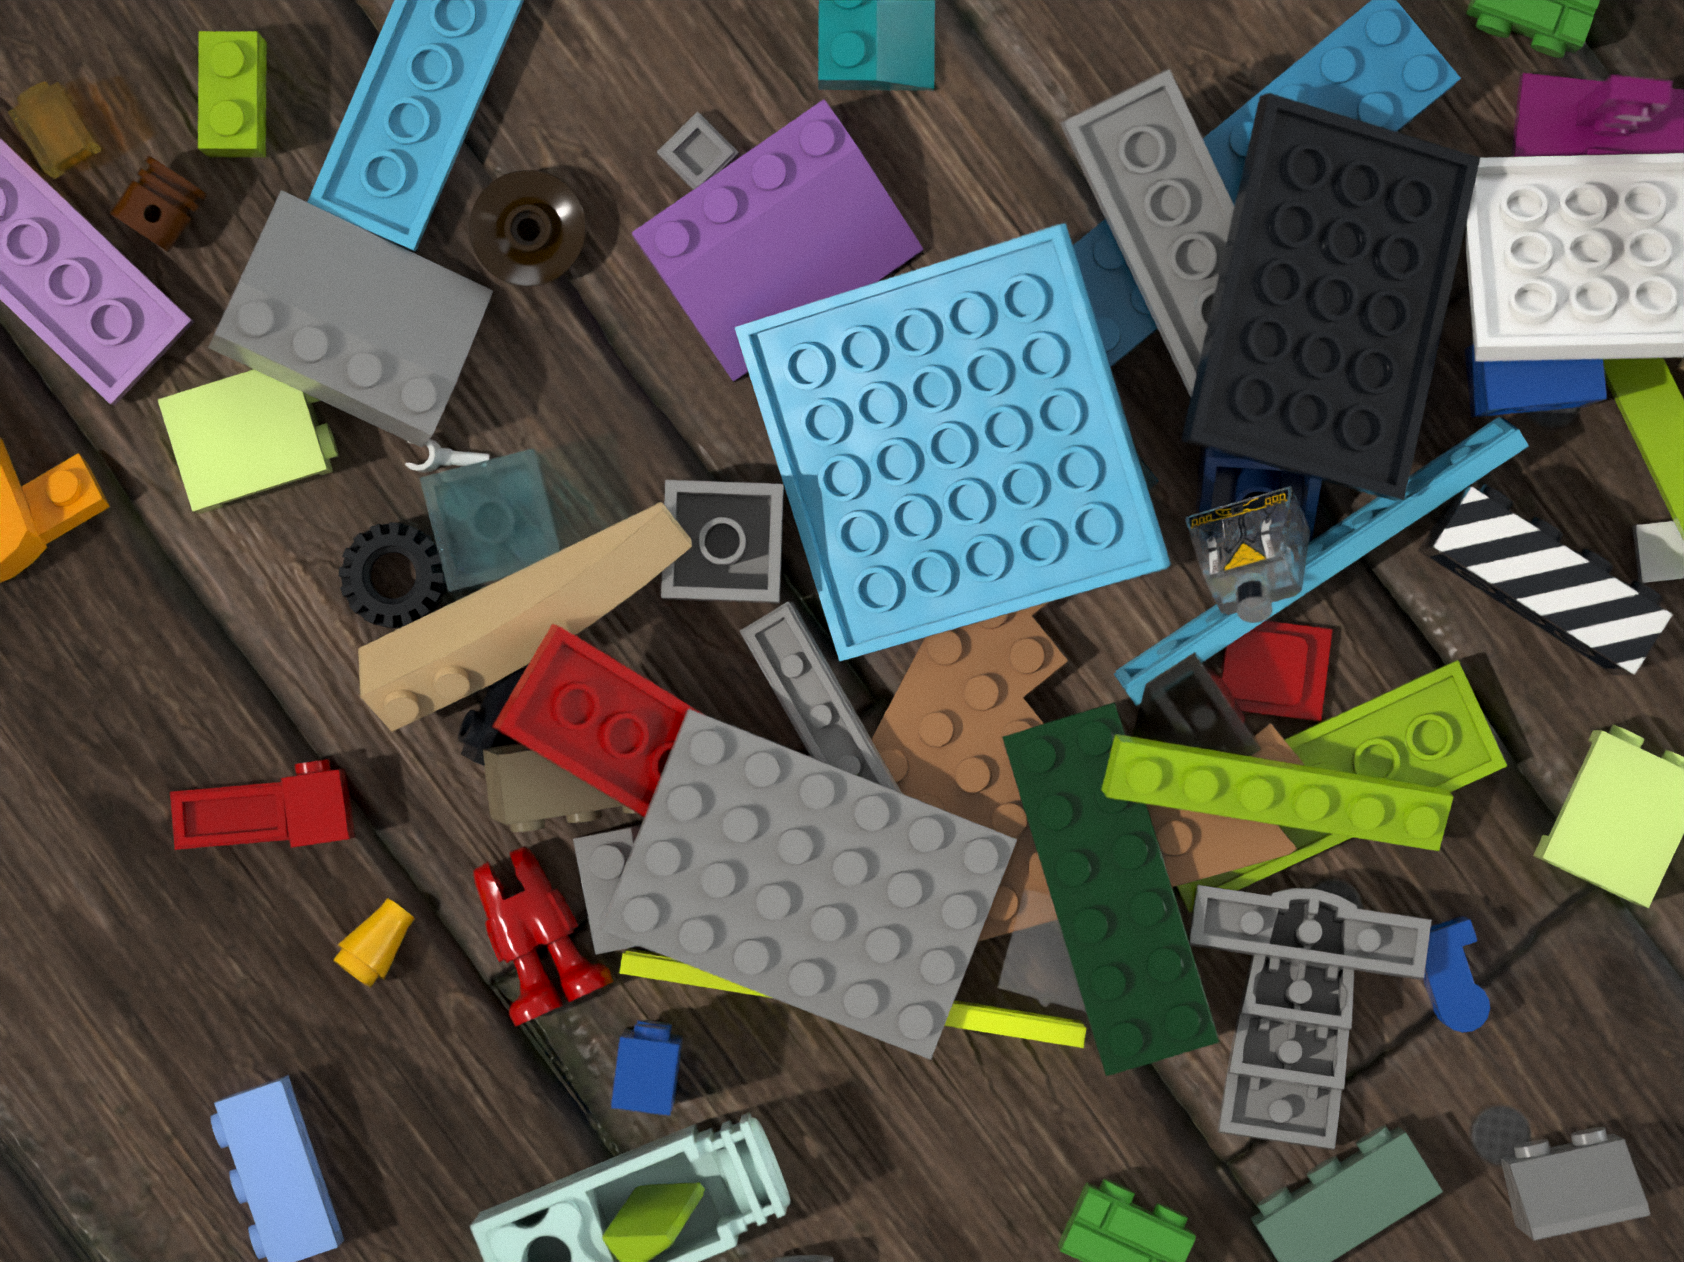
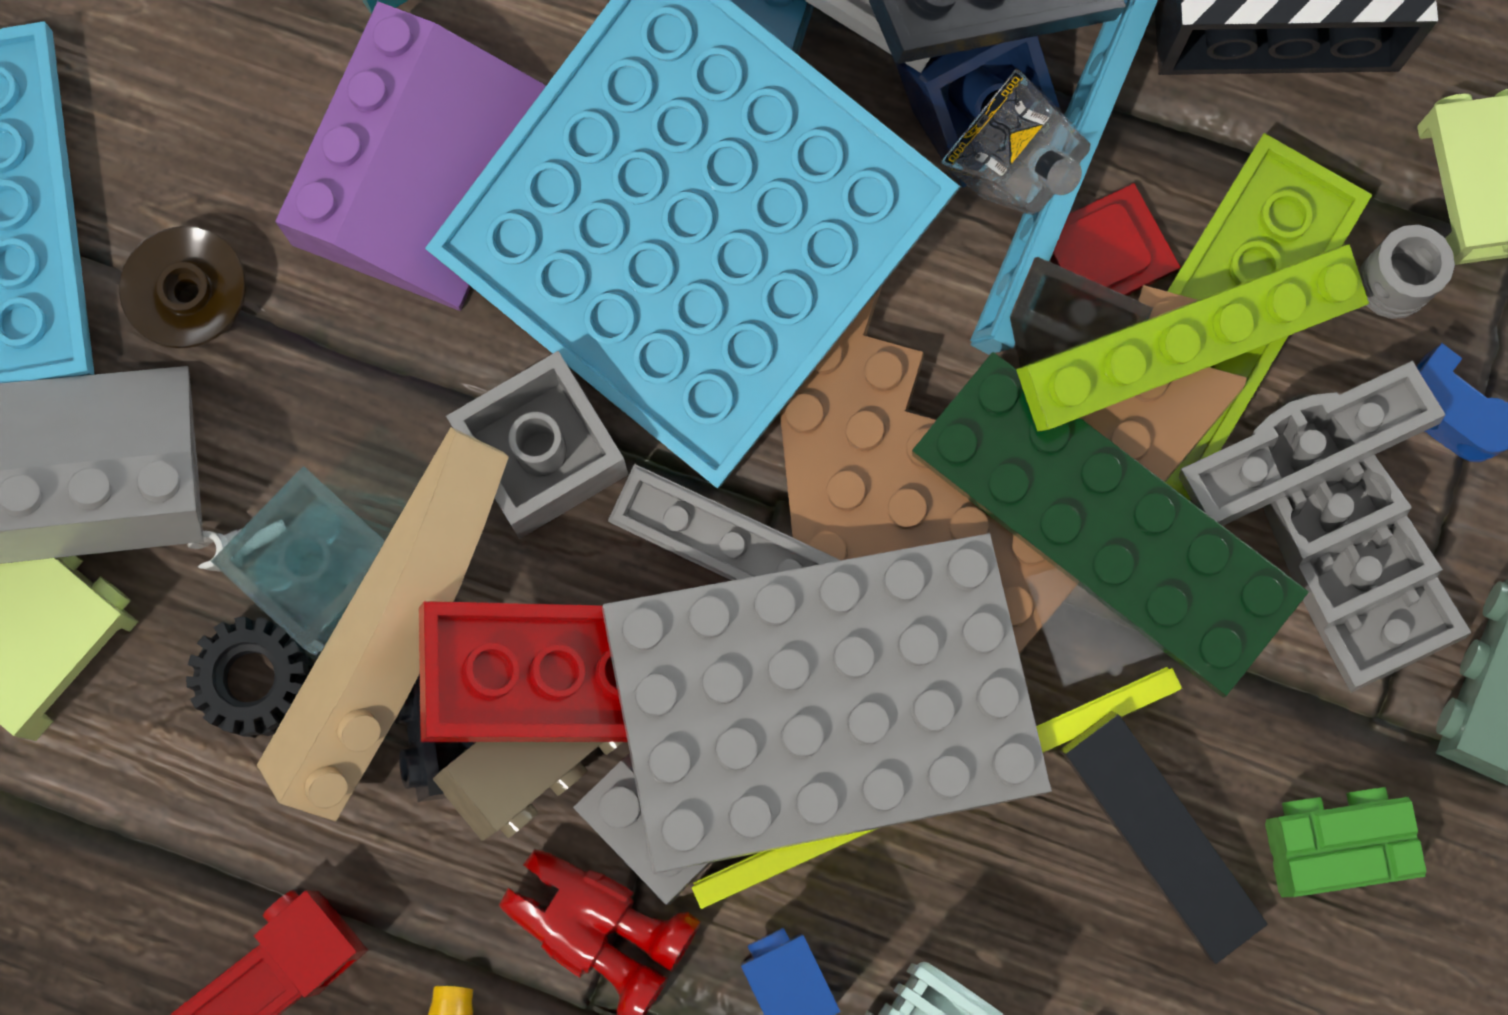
camera: 30 degrees left, 10 degrees down
(697, 151) = (291, 131): light grey tile -> none
(995, 1145) = (1163, 837): none -> black tile
(1487, 844) = (1406, 271): none -> light grey piece

